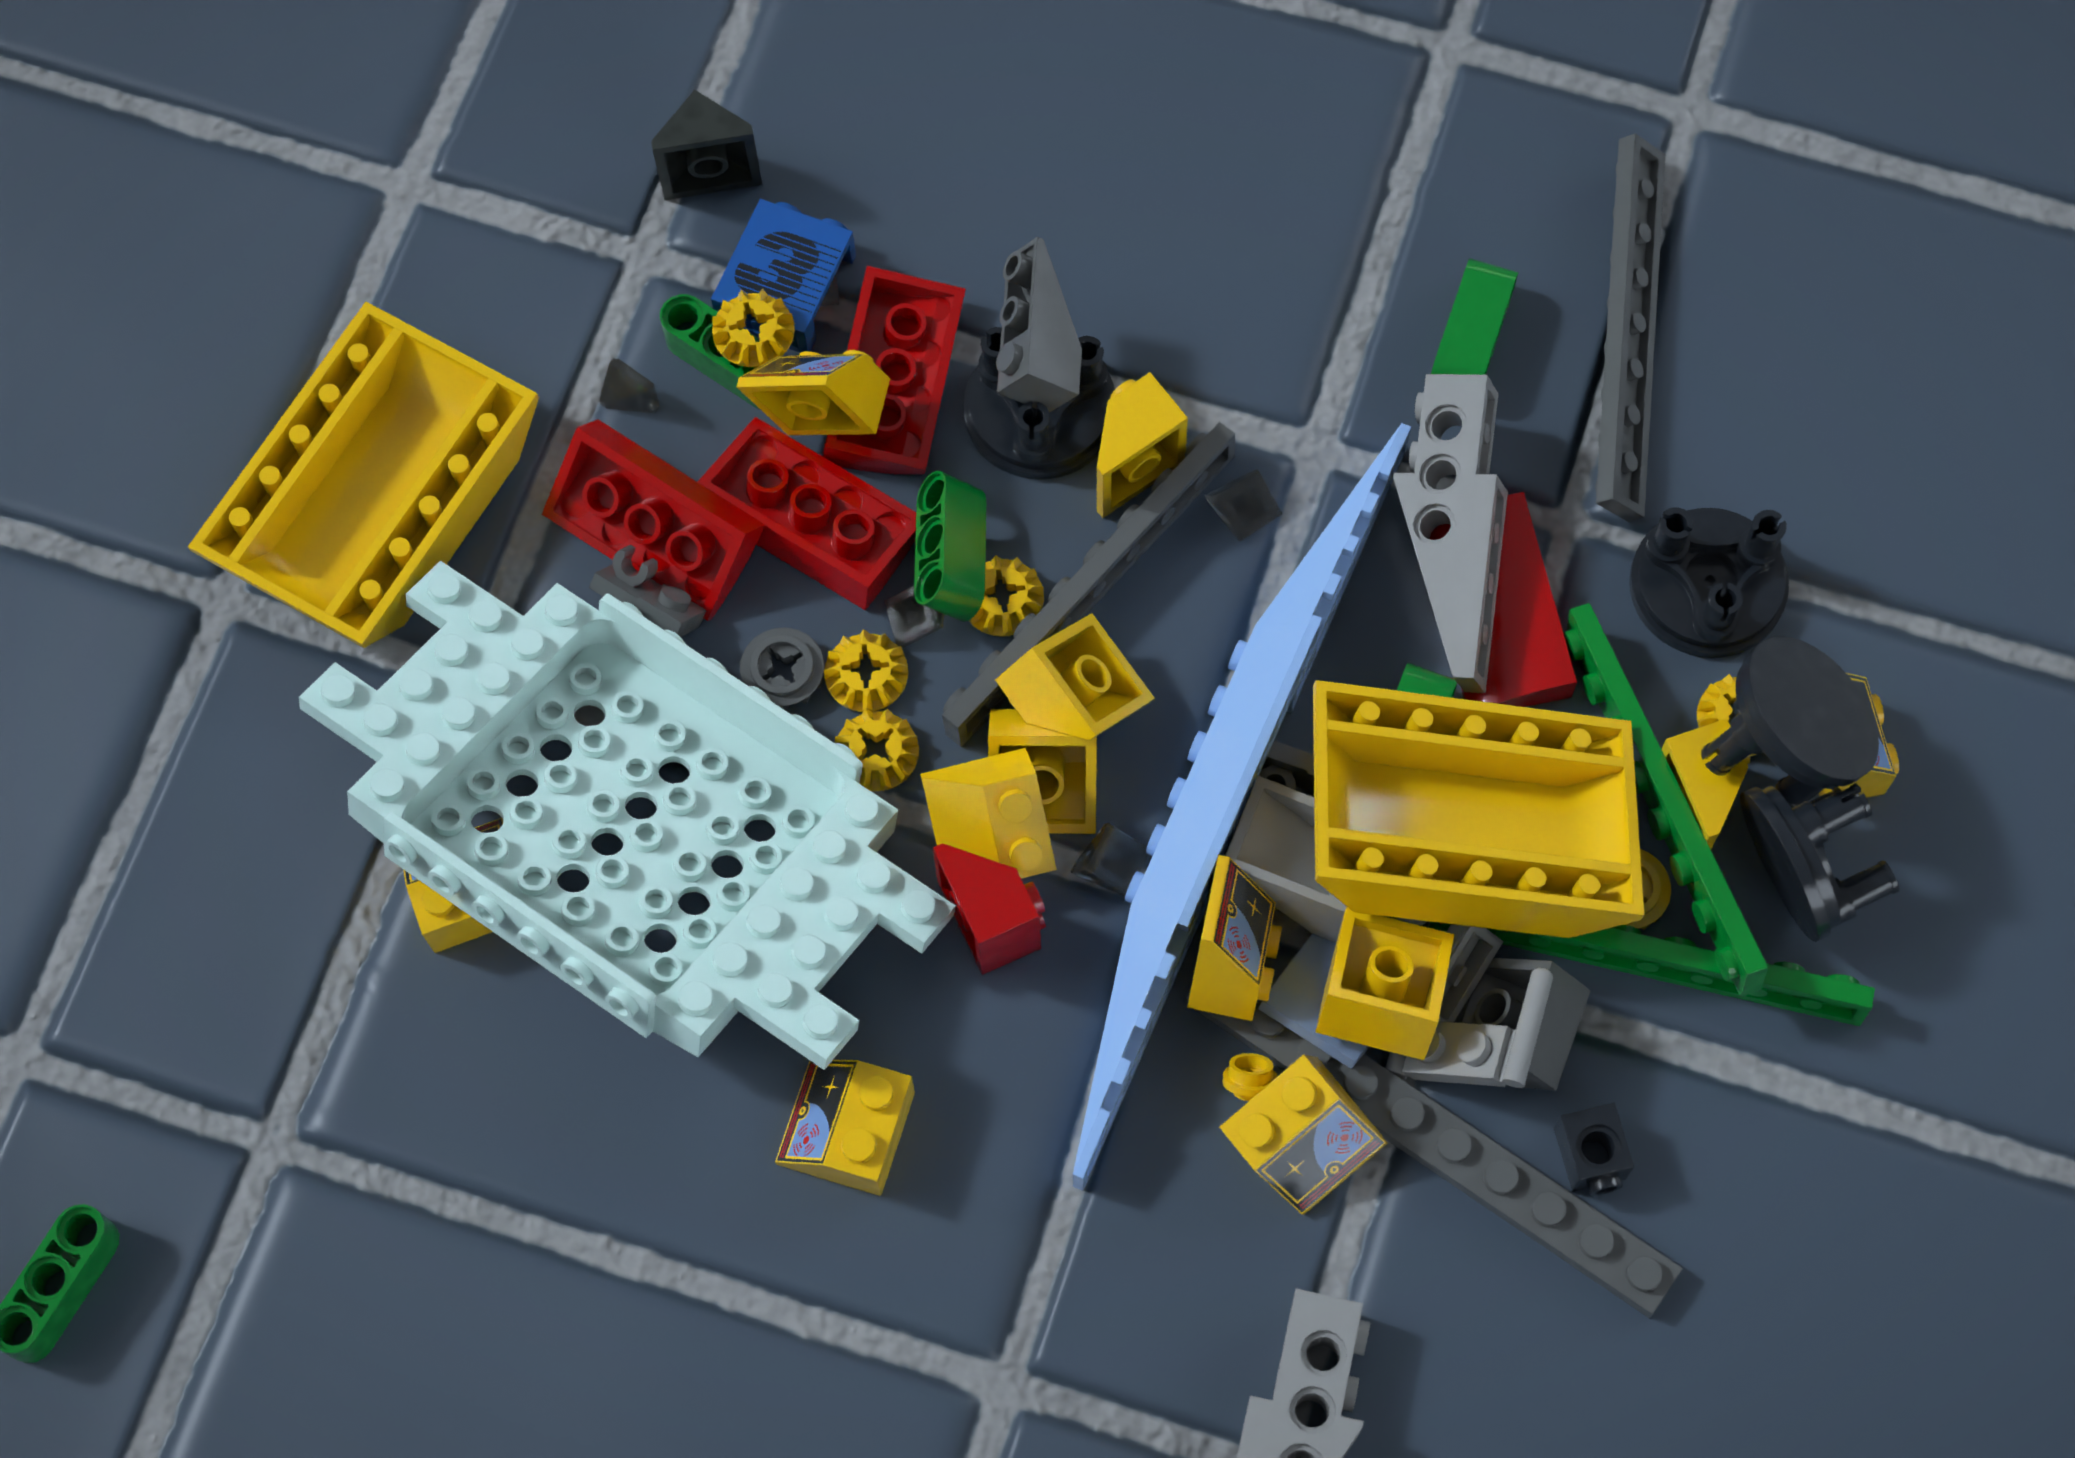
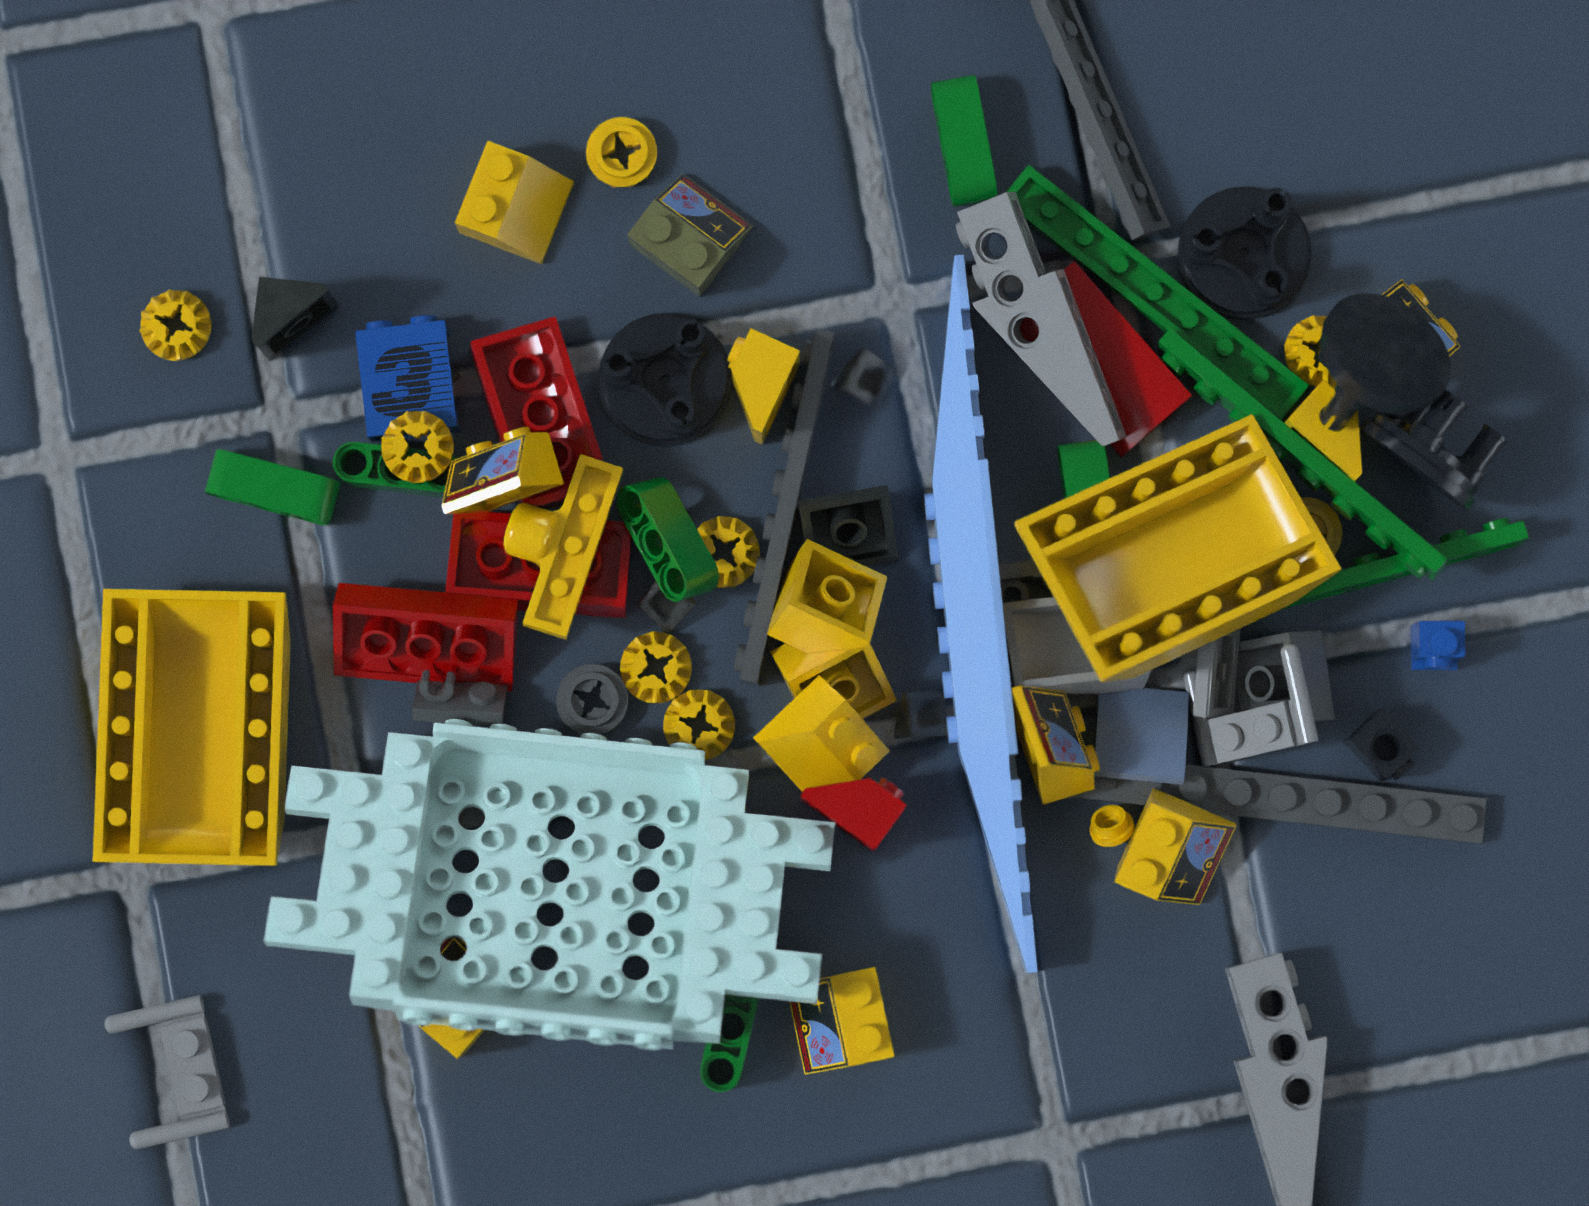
camera: 30 degrees left, 15 degrees up
(158, 812) = (190, 1067): none -> light grey plate
(591, 306) = (272, 487): none -> green beam
(593, 140) = (183, 343): none -> yellow gear
(627, 390) = (340, 541): clear smoke slope -> none
(716, 1090) = (731, 1049): none -> green beam
(841, 492) = (563, 543): none -> yellow plate
(986, 167) = (513, 203): none -> yellow slope
(1038, 339) = (648, 343): dark grey slope -> none
(1107, 163) = (634, 136): none -> yellow gear
(1141, 281) = (688, 234): none -> olive slope
(1150, 627) = (852, 524): none -> pearl dark grey slope
(1385, 984) = (1180, 715): yellow slope -> none
(1589, 559) = (1154, 292): none -> green plate
(1711, 1074) = (1437, 645): none -> blue brick

